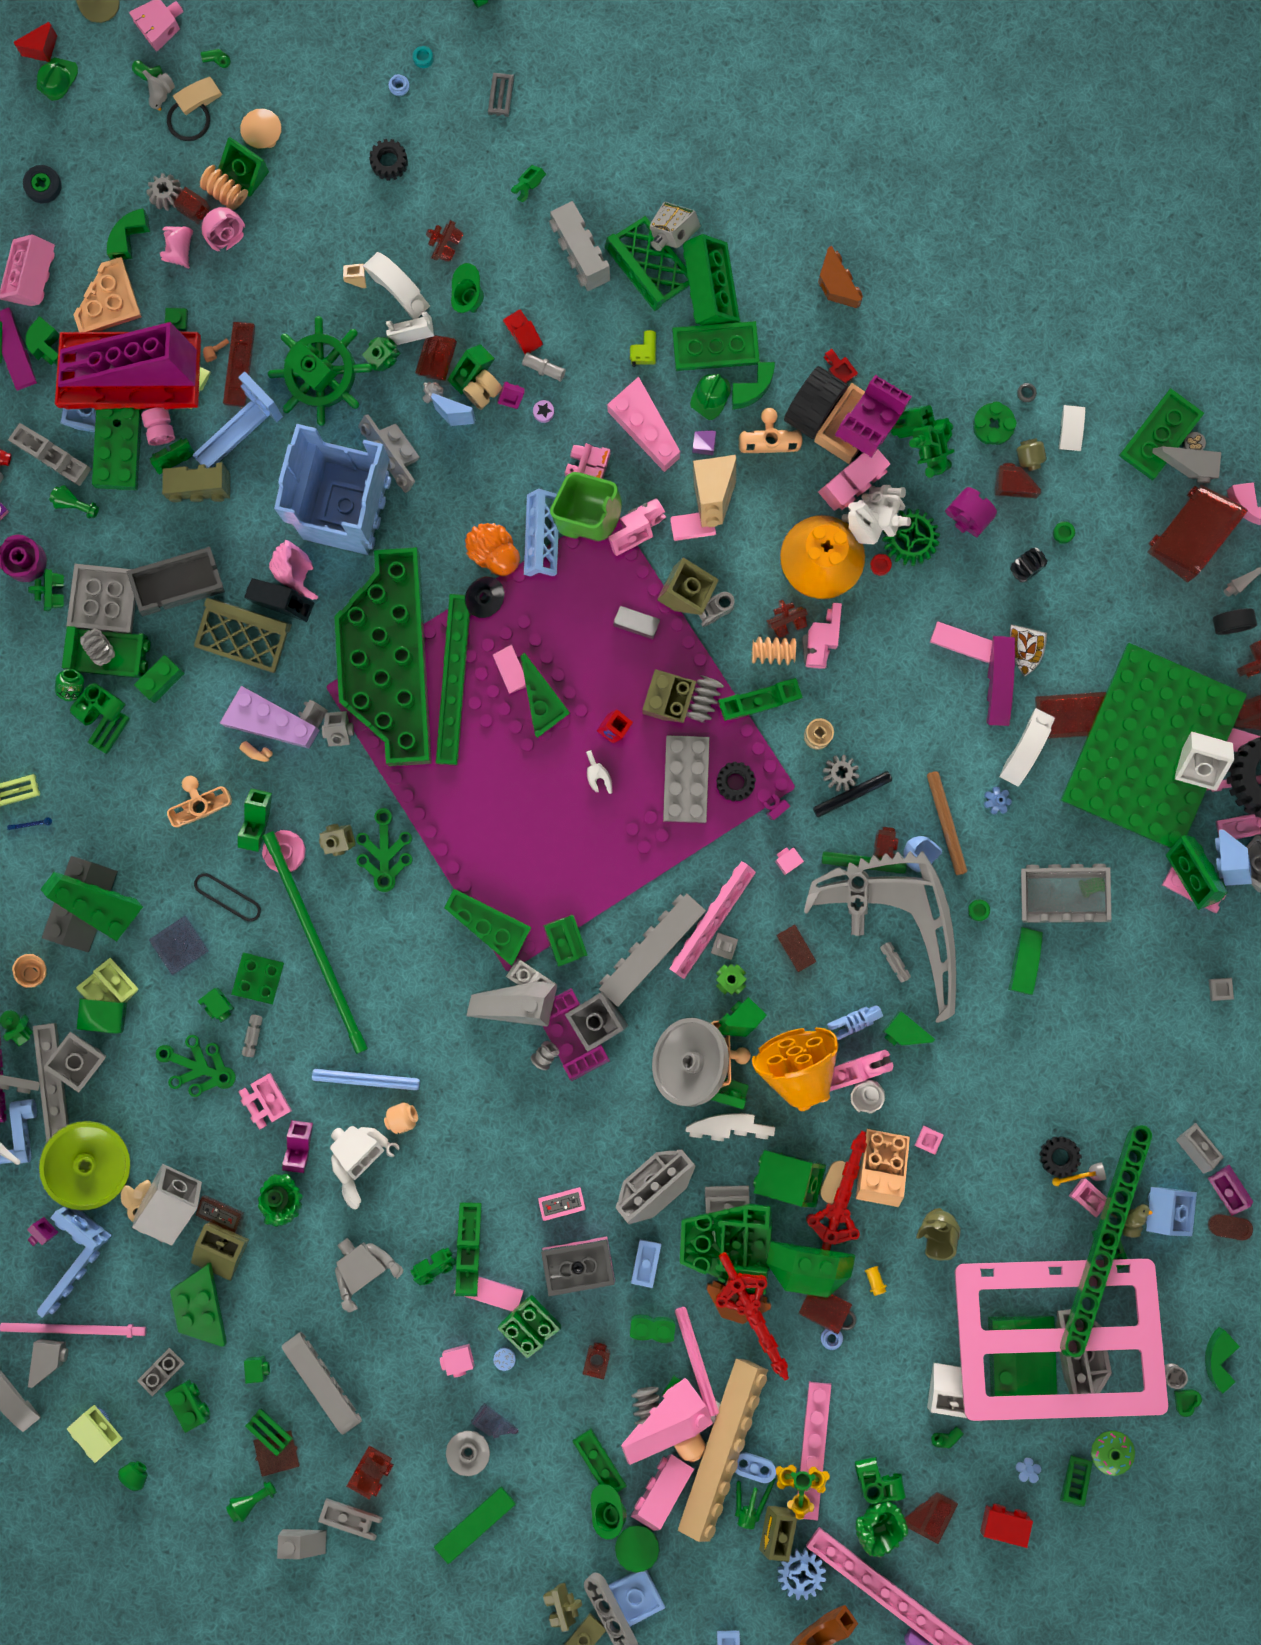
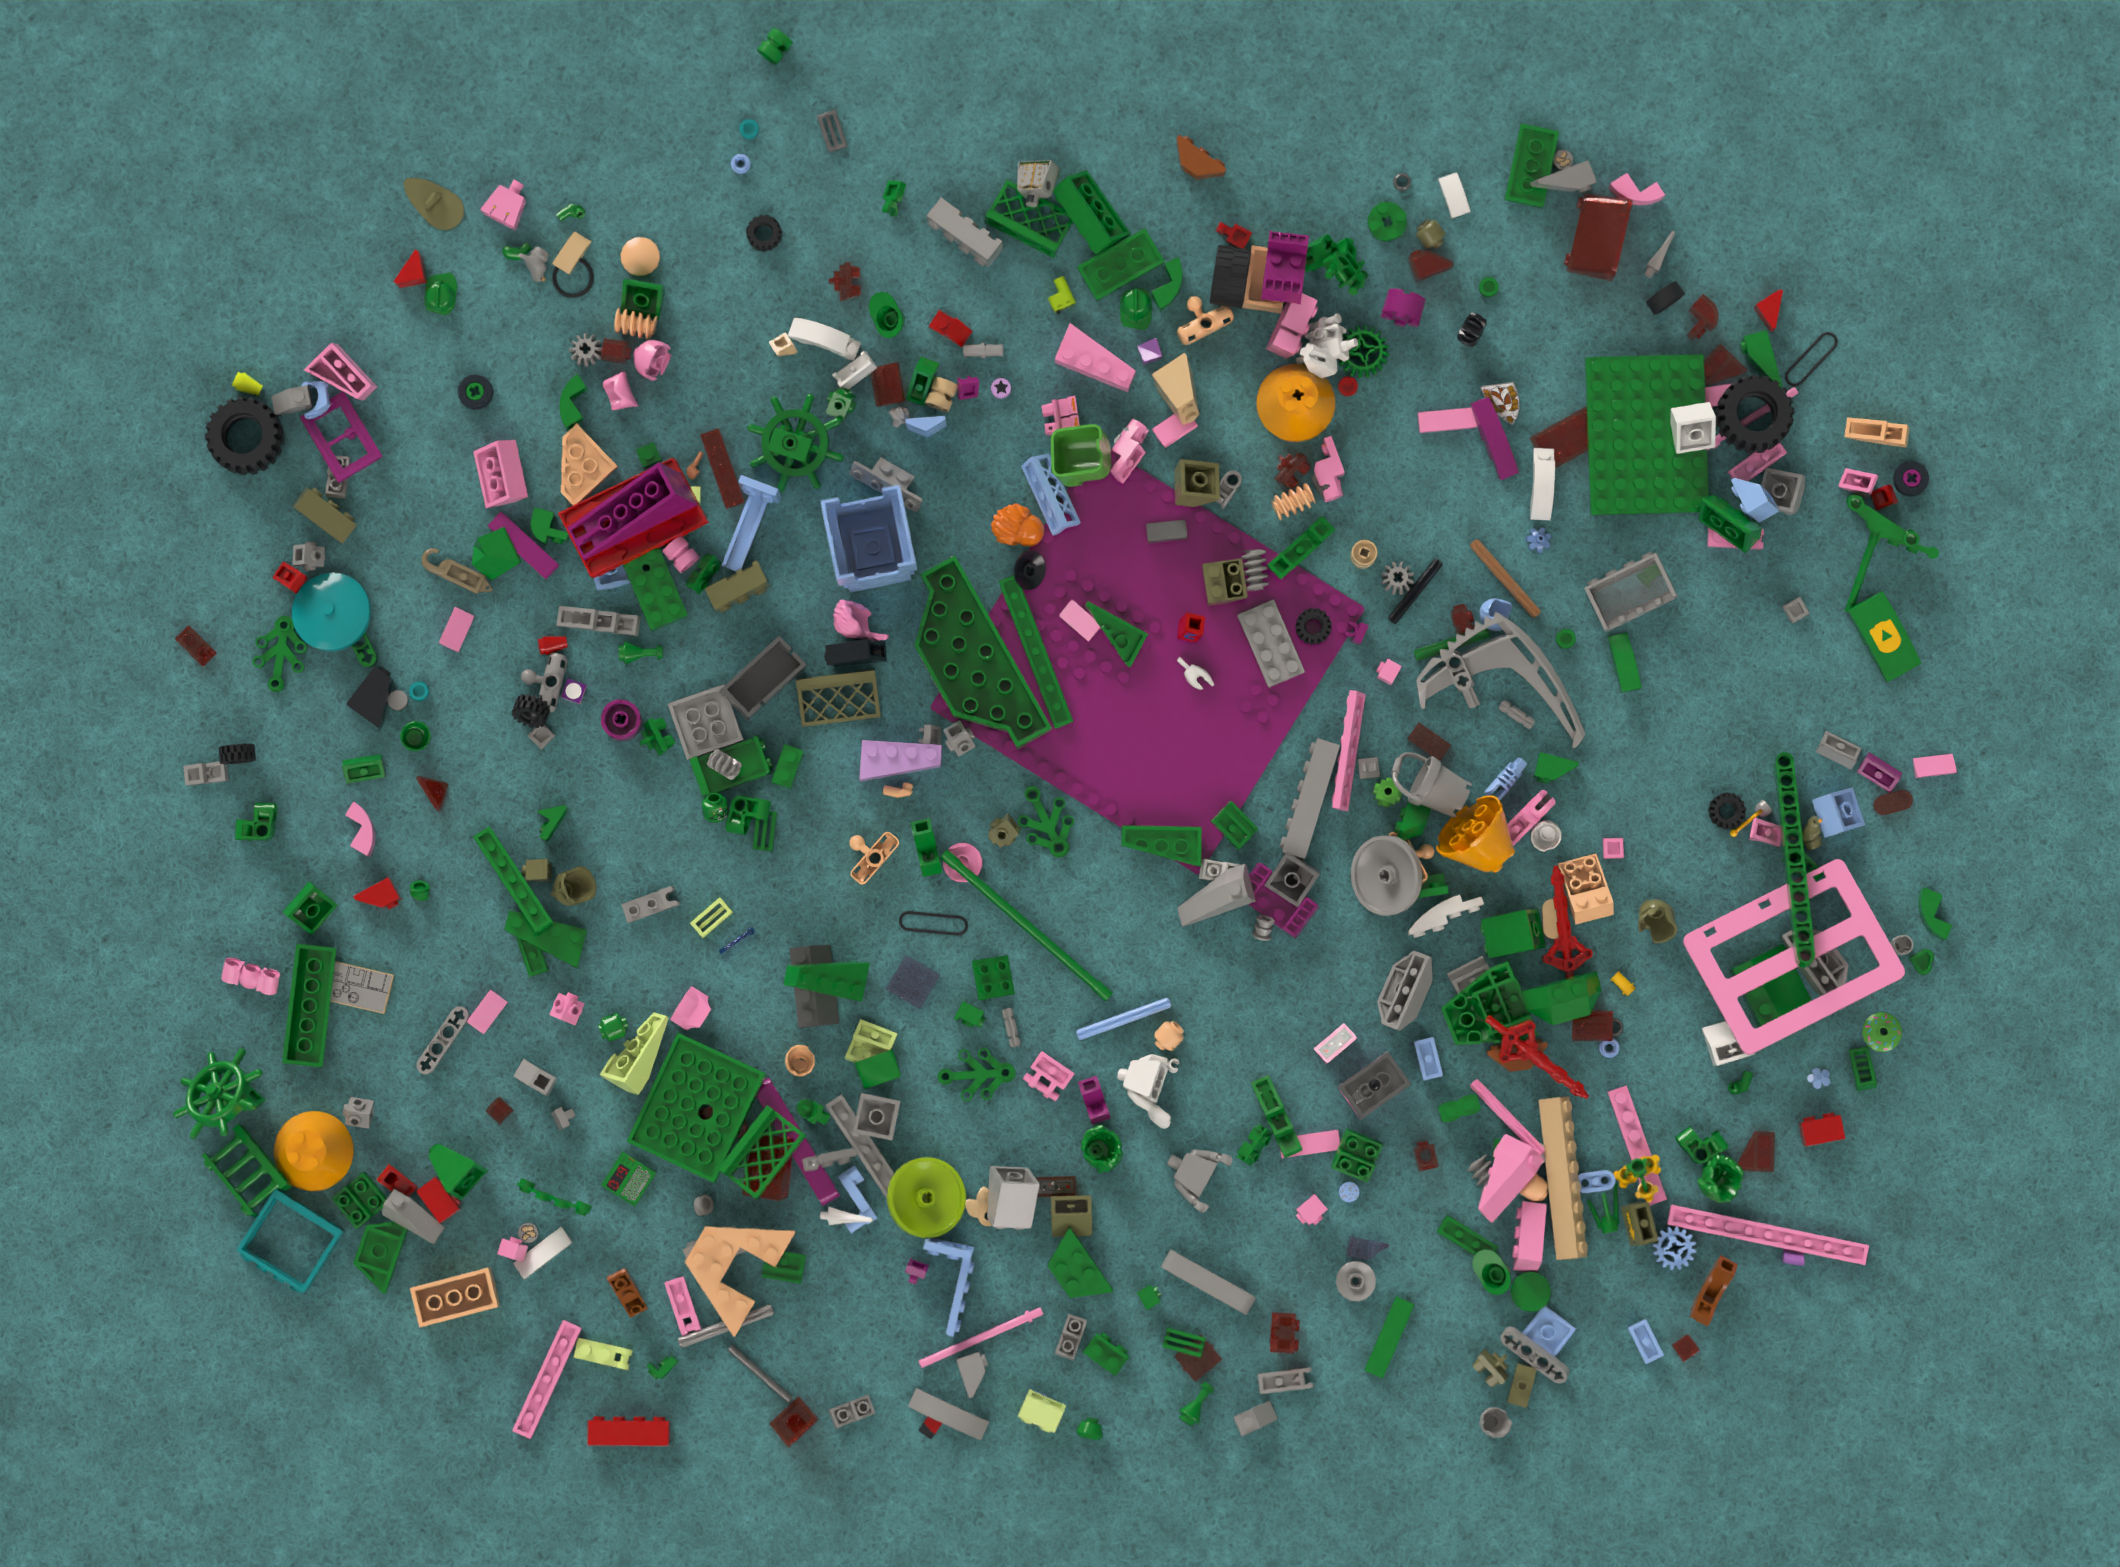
camera: 25 degrees left, 0 degrees up
(779, 995) = (1434, 785): none -> light grey piece

